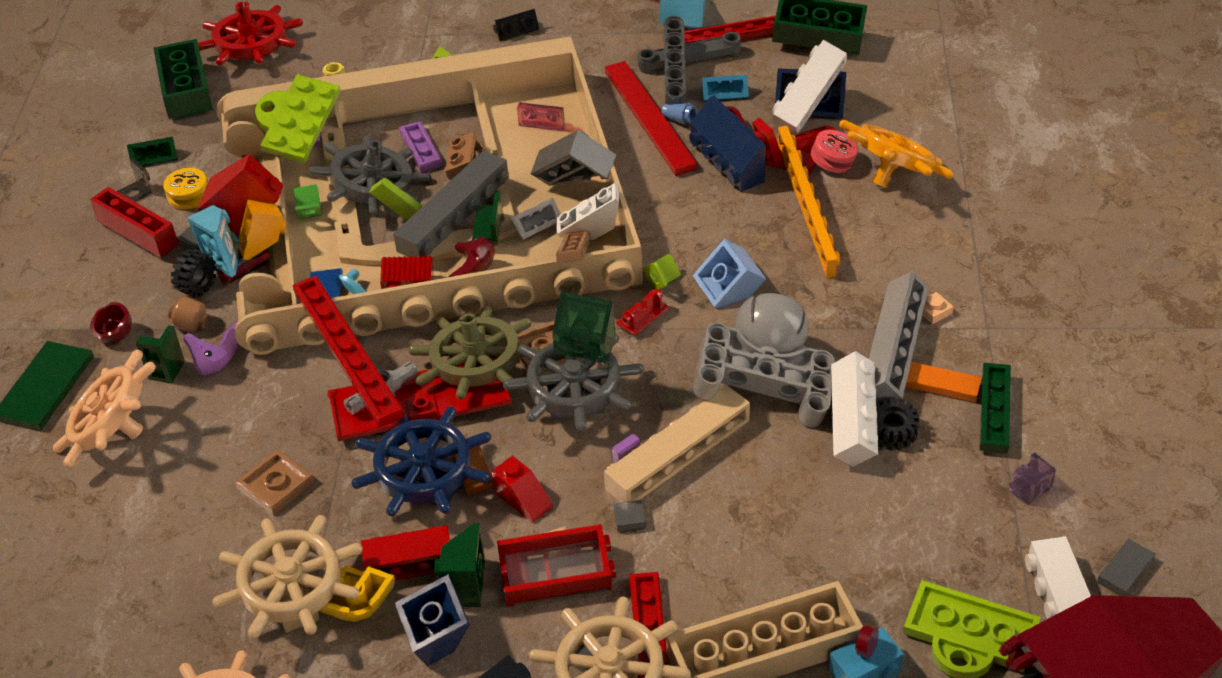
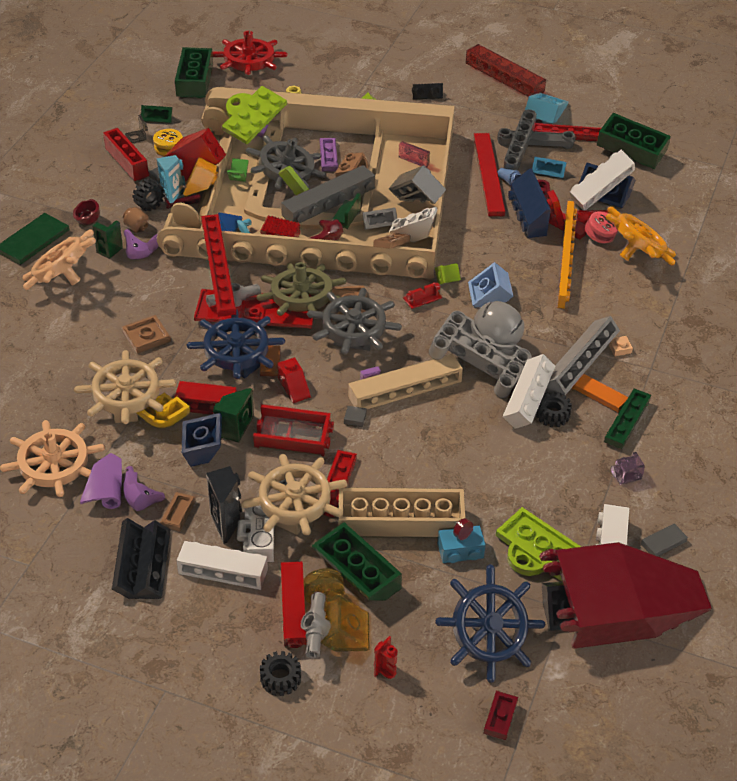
camera: 15 degrees right, 0 degrees up
(584, 327) = (369, 289): clear green slope -> none

